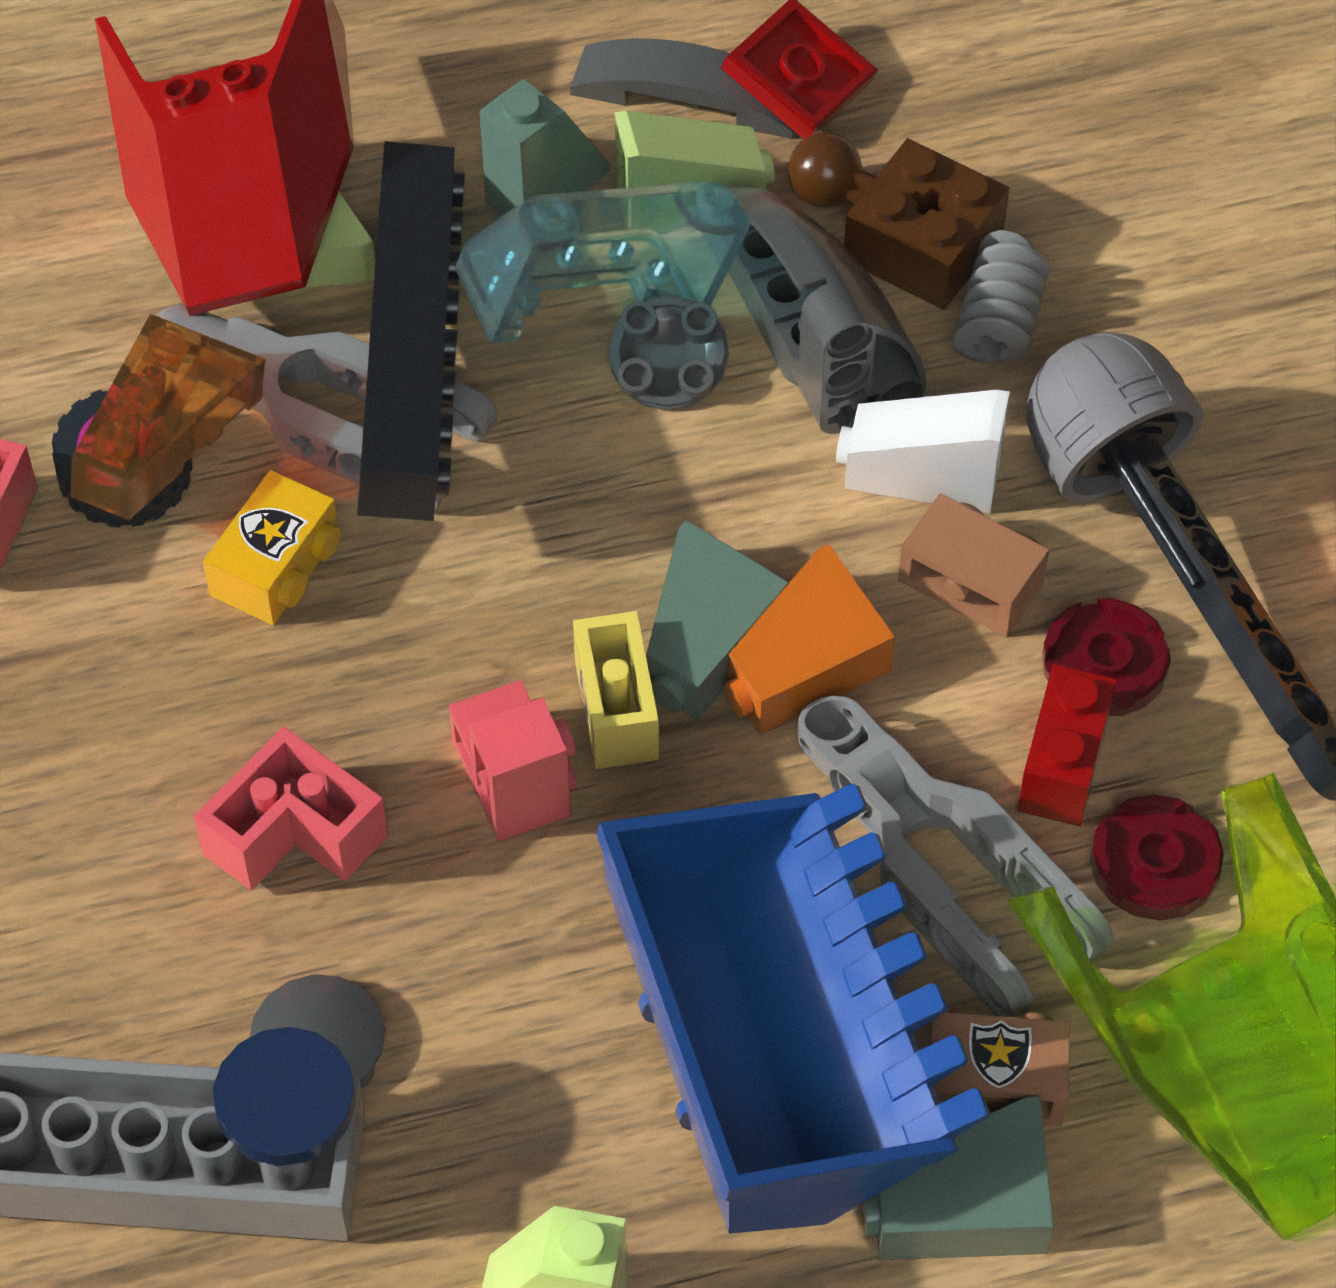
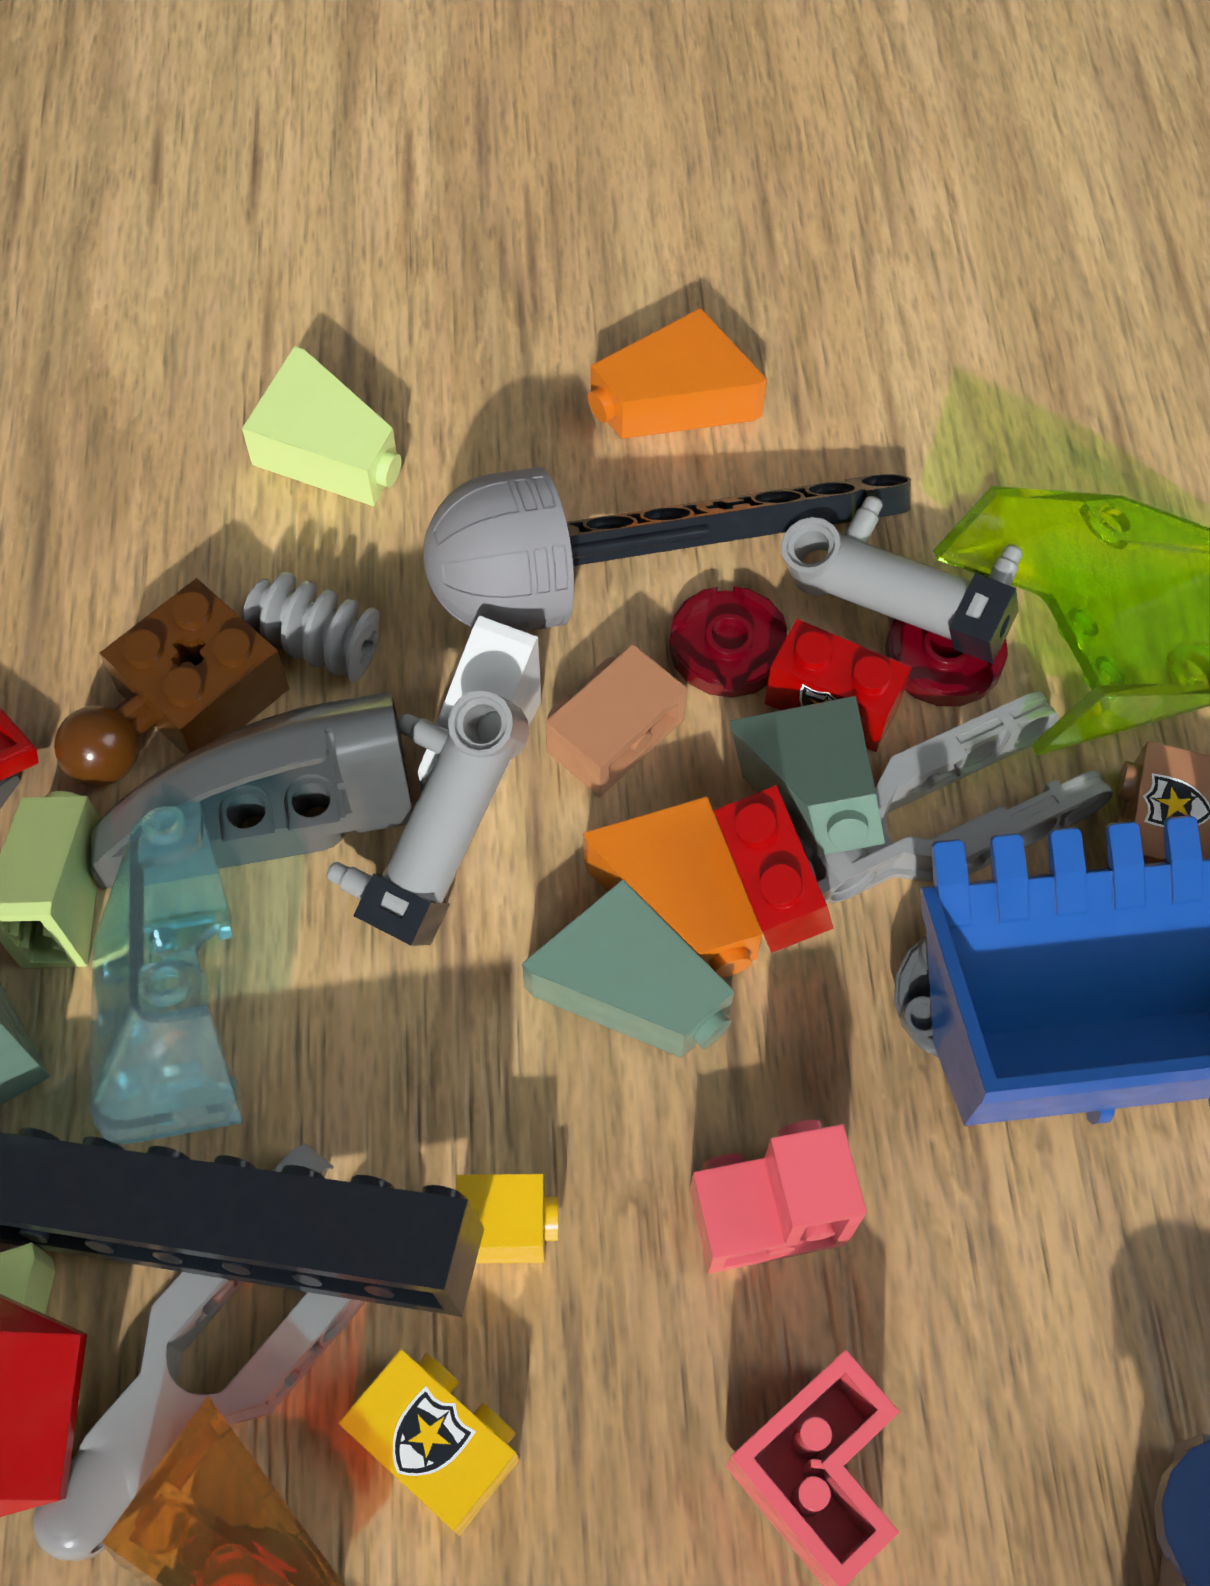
camera: 80 degrees left, 5 degrees up
(333, 1010) = (1081, 1486): dark grey dish -> none
(461, 562) = (514, 1215): none -> yellow brick
(616, 690) = (716, 1076): light yellow brick -> none
(668, 351) = (274, 949): dark grey dish -> none
(820, 689) = (774, 869): none -> red brick
(881, 423) = (443, 822): none -> light grey piece
(943, 723) = (820, 770): none -> sand green slope
(1175, 840) = (965, 611): none -> light grey piece
(1239, 256) = (321, 433): none -> yellowish green slope

